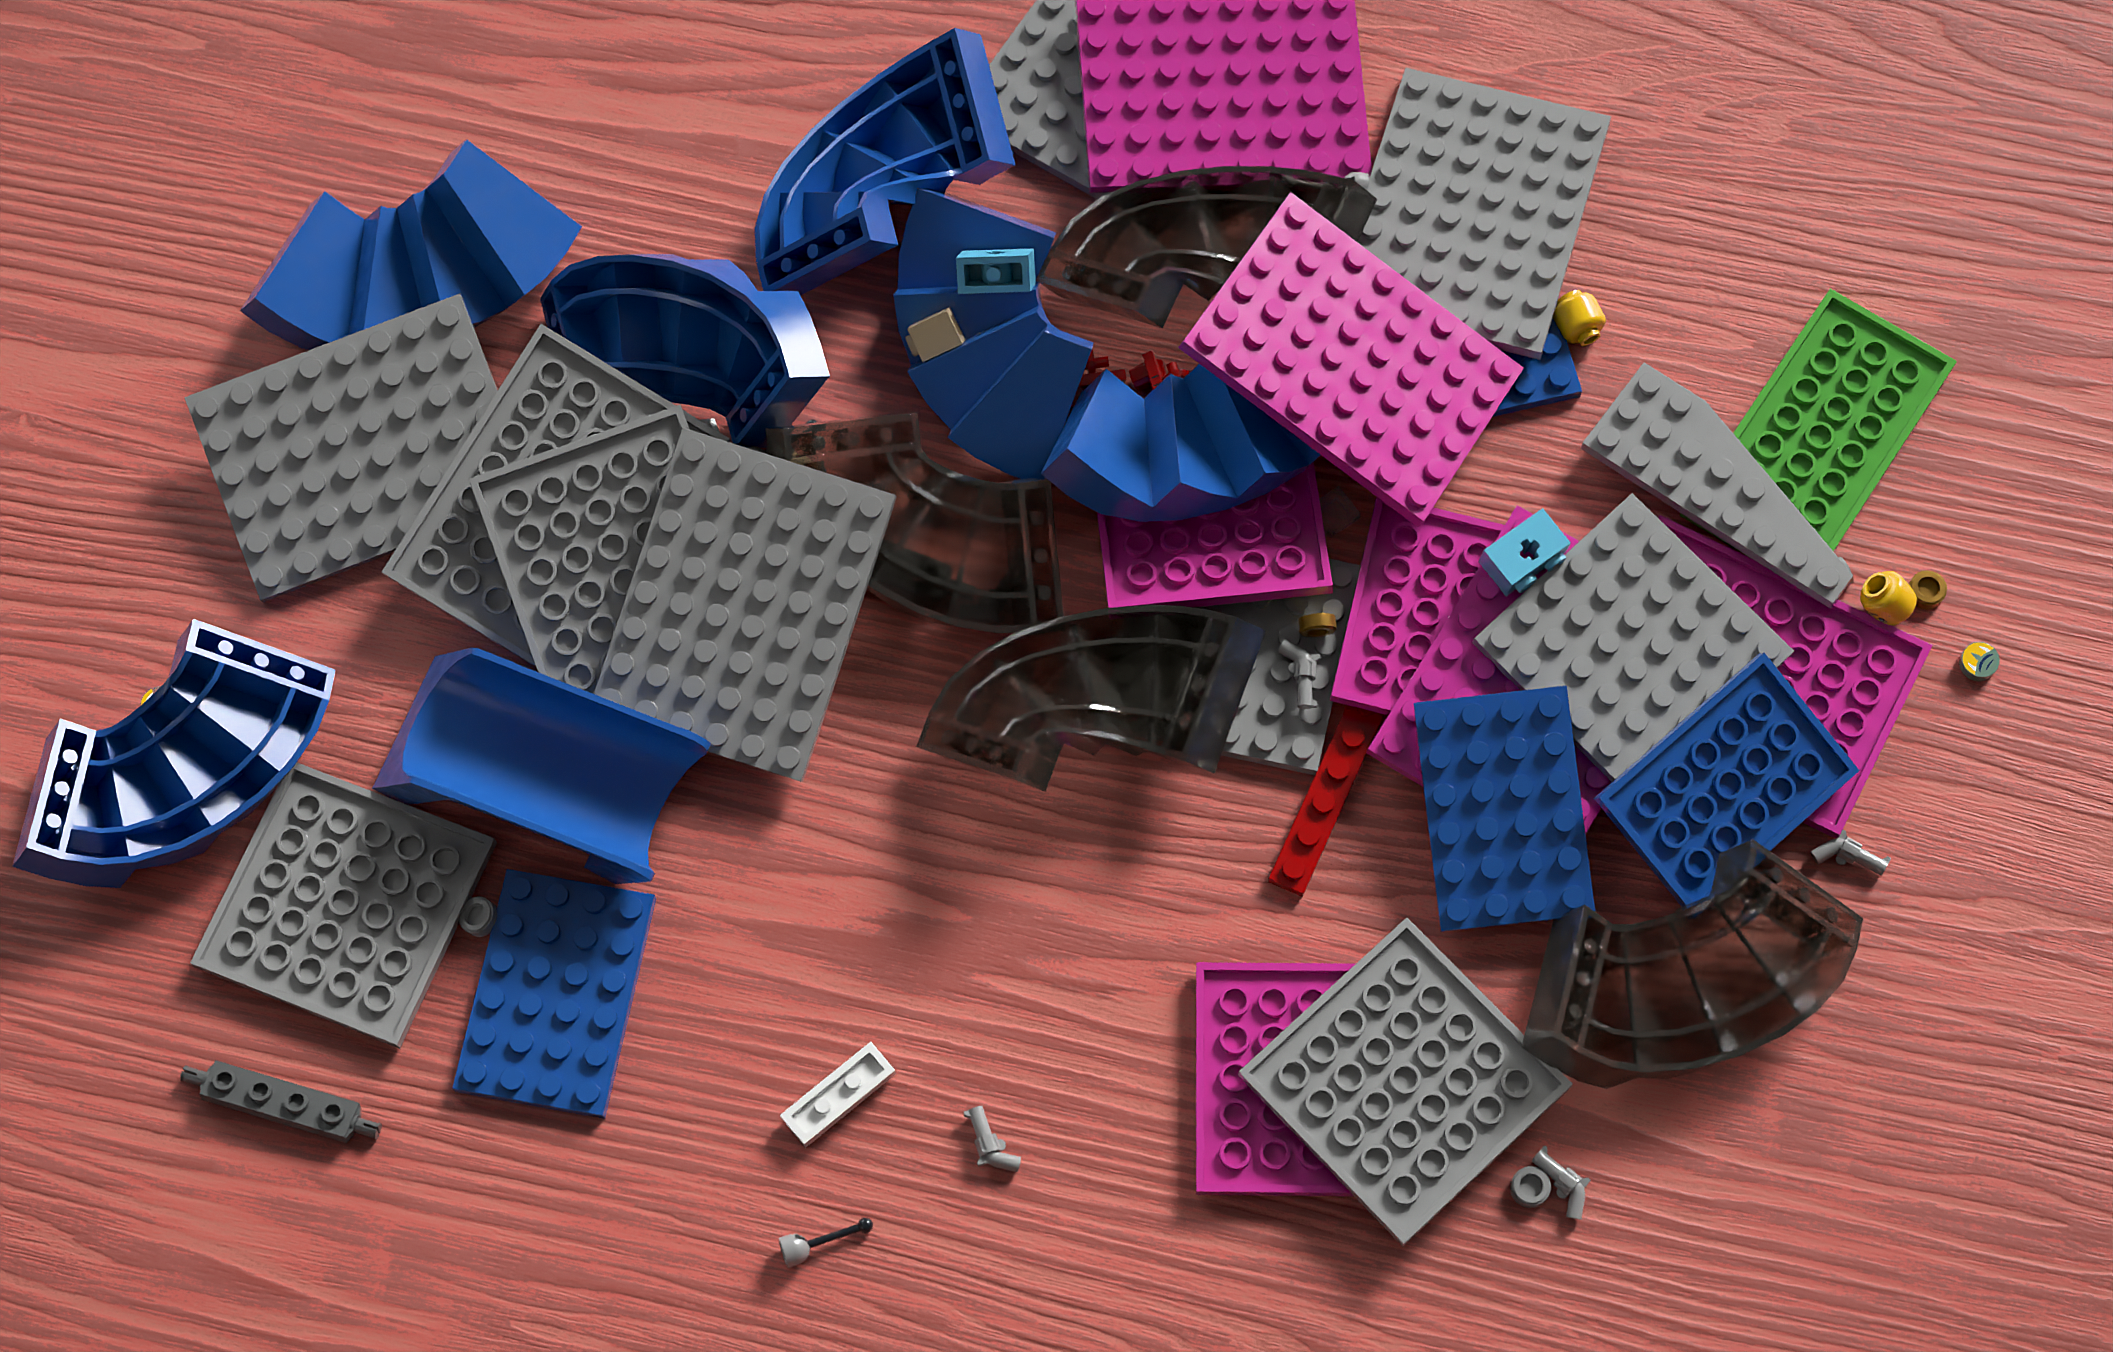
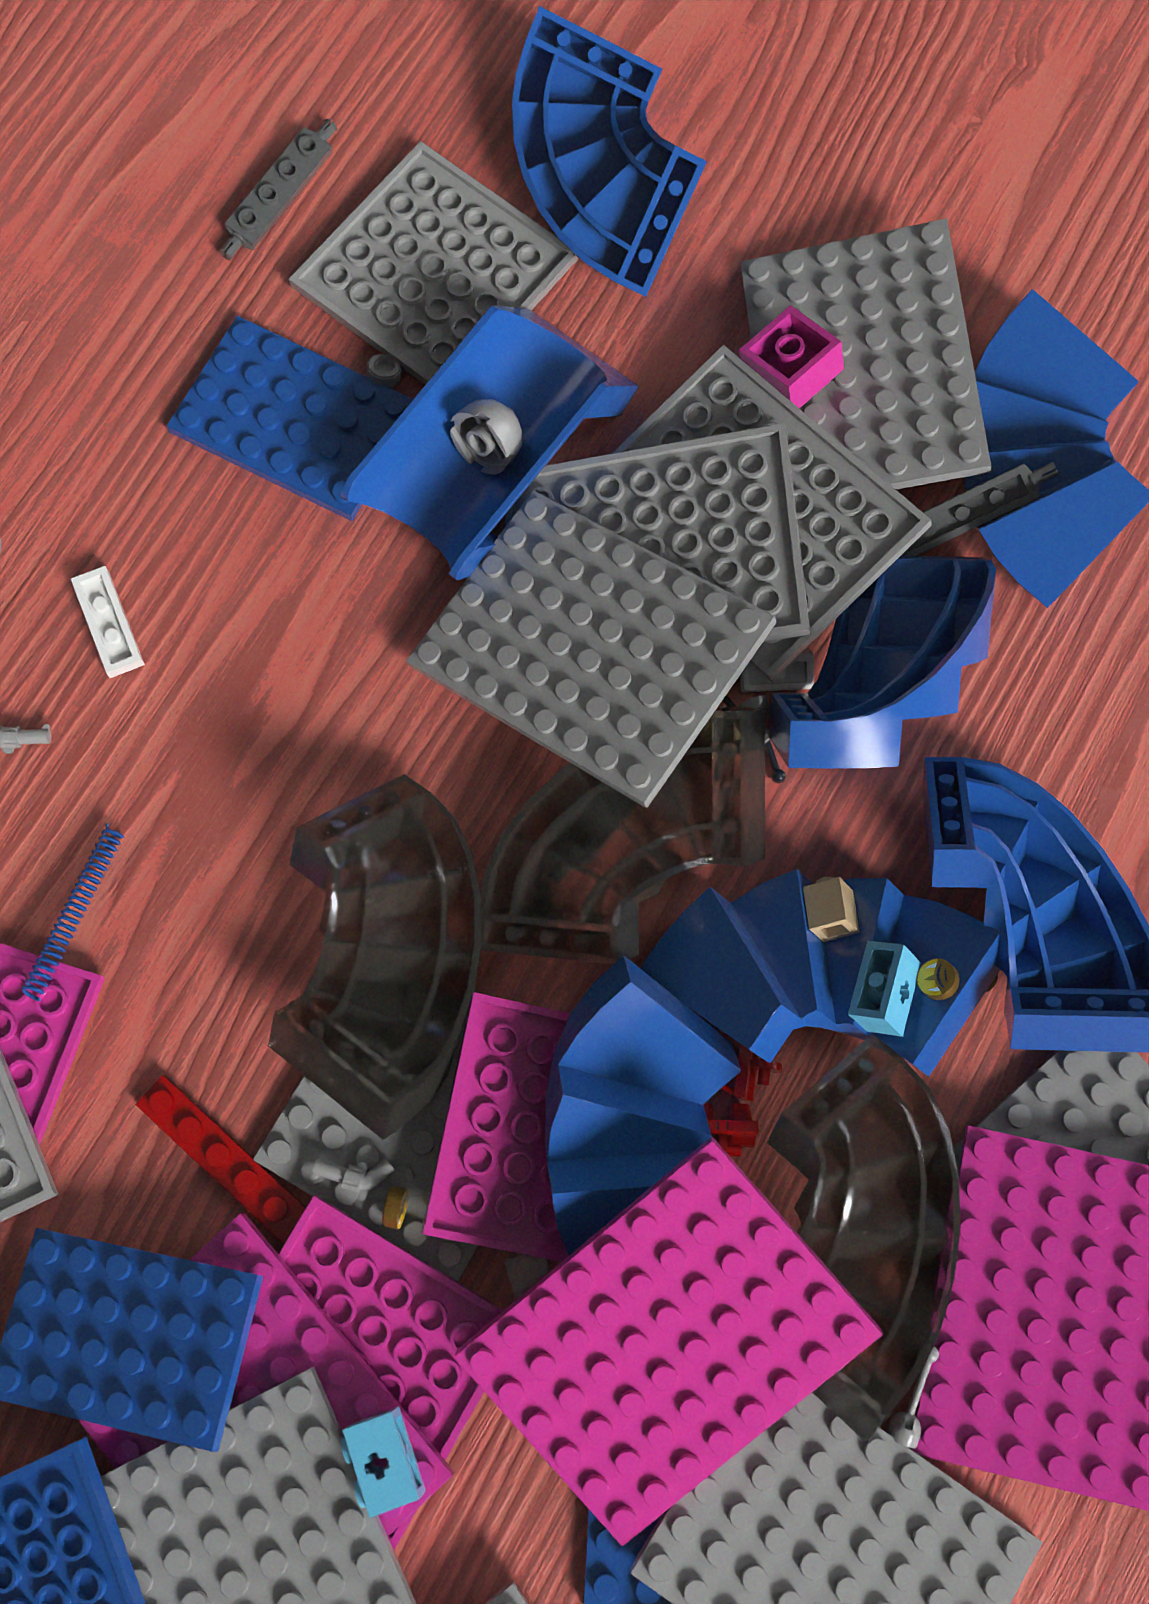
camera: 100 degrees right, 5 degrees up
(381, 499) = (794, 355): none -> dark pink brick
(490, 298) = (981, 505): none -> dark grey plate
(543, 762) = (487, 434): none -> light grey cylinder
(973, 231) = (938, 979): none -> tile
(1145, 1012) = (53, 937): none -> blue piece

